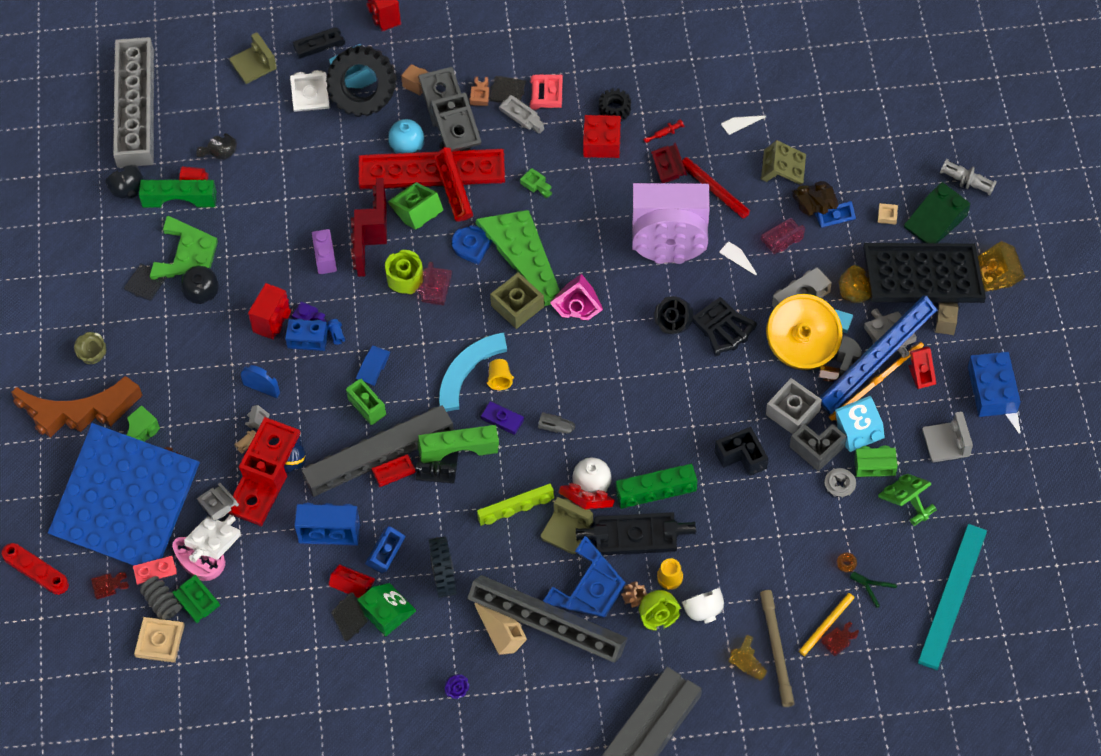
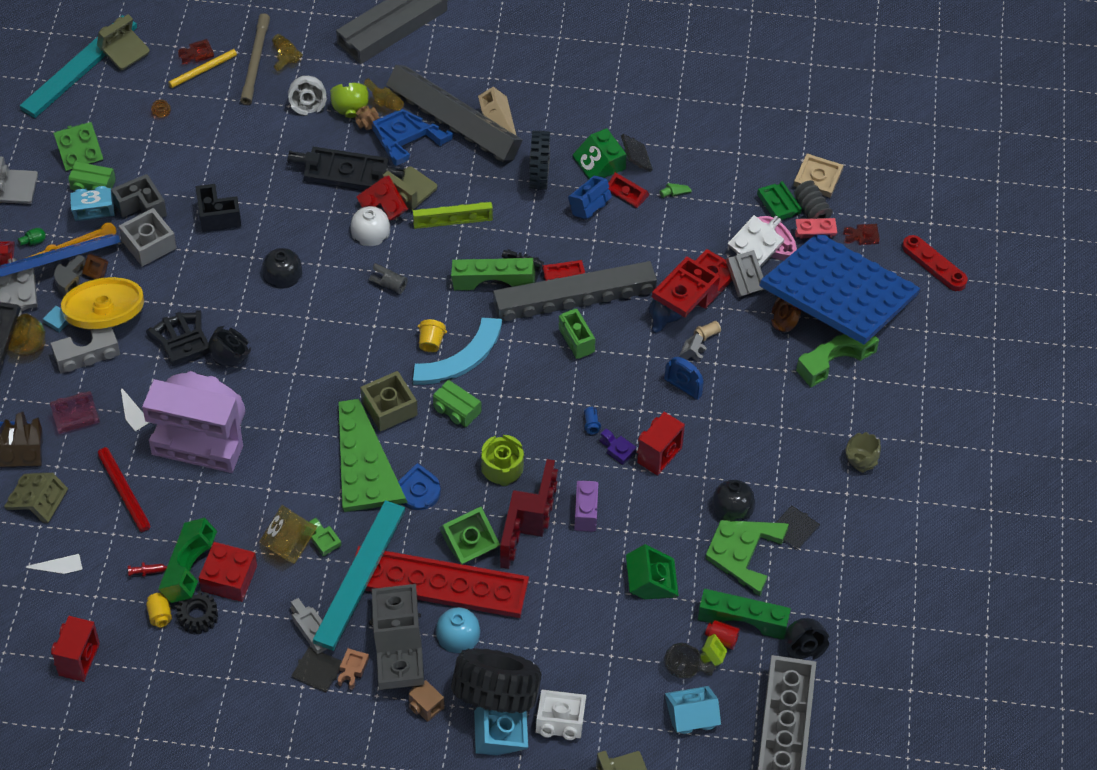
camera: 170 degrees left, 5 degrees down
(78, 414) = (881, 392): dark orange arch -> none
(197, 159) = (713, 651): none -> lime tile
(209, 118) = (693, 709): none -> medium azure slope
(258, 209) = (651, 574): none -> green slope
(303, 591) = (674, 189): none -> bright green bar
(306, 334) = (624, 420): blue brick -> none
(327, 524) = (640, 225): blue brick -> none
(372, 365) = (559, 377): blue slope -> none
(435, 285) = (470, 443): clear pink bracket -> none
(453, 185) = (420, 544): red brick -> none
(456, 686) = (551, 84): dark purple plate -> none
(458, 317) = (456, 403): none -> bright green brick
(494, 153) = (358, 575): none -> teal tile
(502, 418) = (440, 301): dark purple plate -> none
(552, 91) = (265, 648): coral plate -> none
(564, 169) = (288, 534): none -> clear yellow slope
(577, 300) = (322, 395): dark pink slope -> none
(626, 622) = (384, 96): none -> clear yellow piece
(635, 111) = (193, 540): none -> green arch
(645, 98) = (158, 610): none -> yellow brick
(656, 486) = (311, 200): green brick -> none
(659, 414) = (282, 268): none -> black cylinder
(669, 163) = (163, 523): dark red plate -> none
(670, 574) = (327, 130): yellow piece -> none
(694, 50) = (75, 648): none -> red brick
(840, 475) = (139, 168): light grey gear -> none
(866, 582) = (151, 90): dark green plant -> none
(902, 393) = (32, 237): none -> green cylinder
(917, 622) = (121, 43): none -> olive bracket

